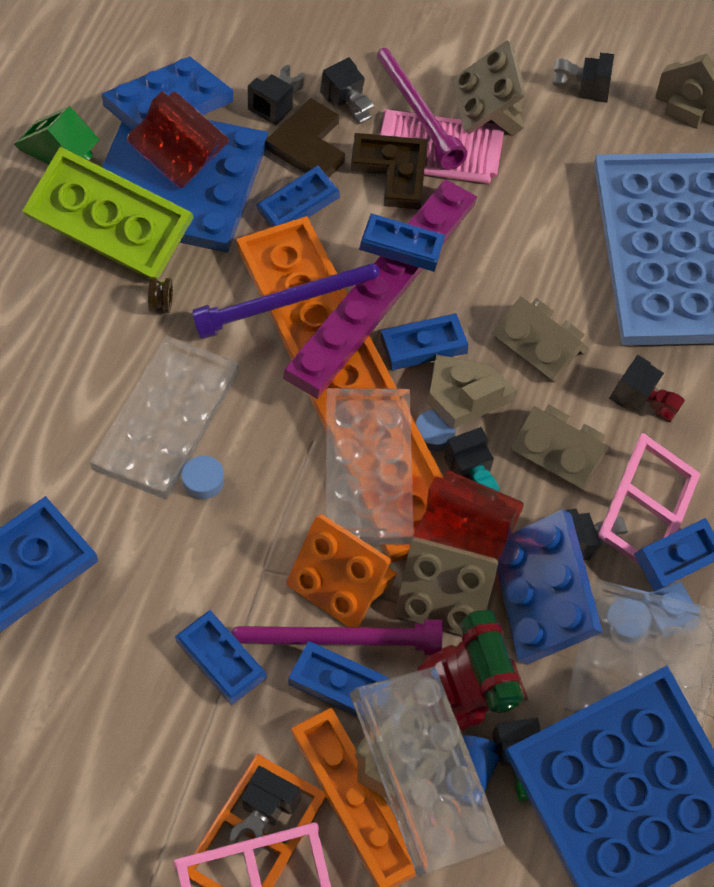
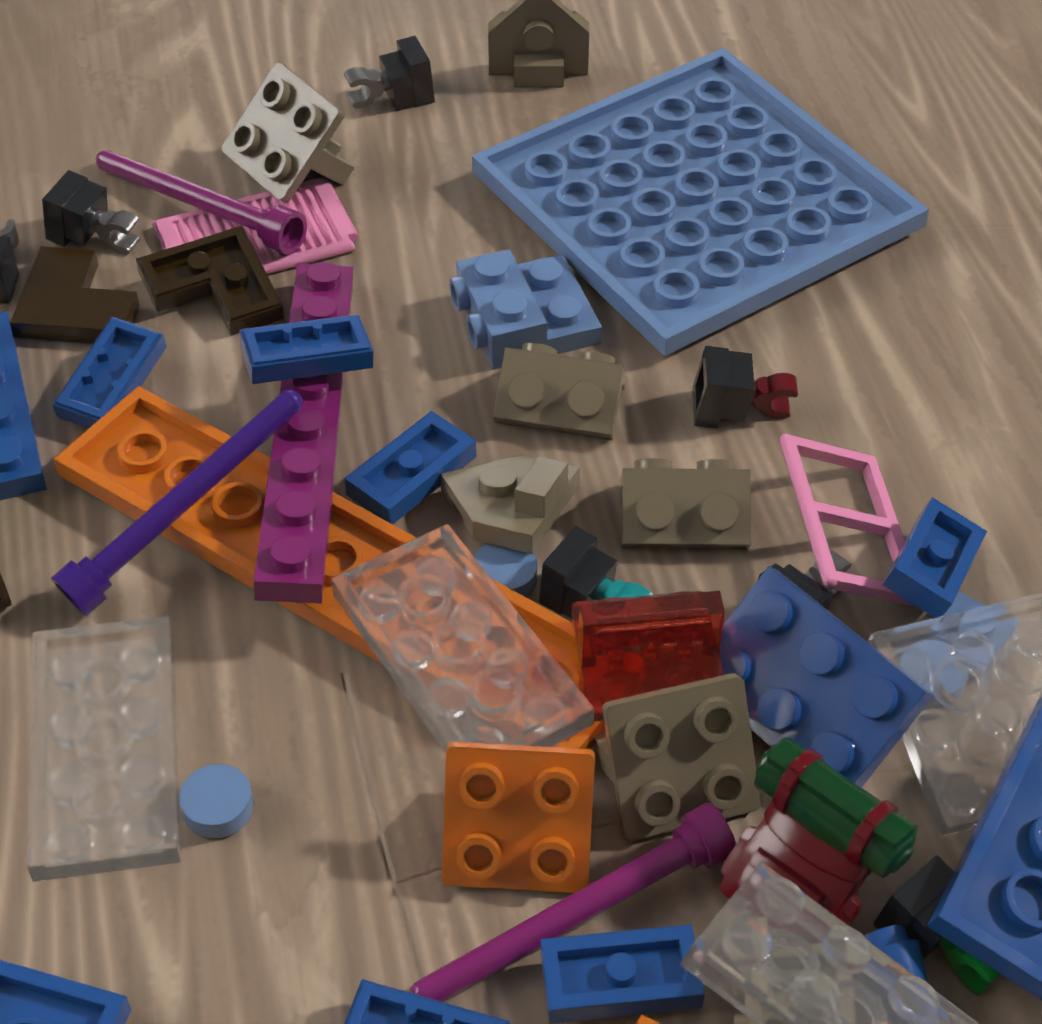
camera: 30 degrees left, 10 degrees down
(559, 271) = (522, 304): none -> medium blue plate

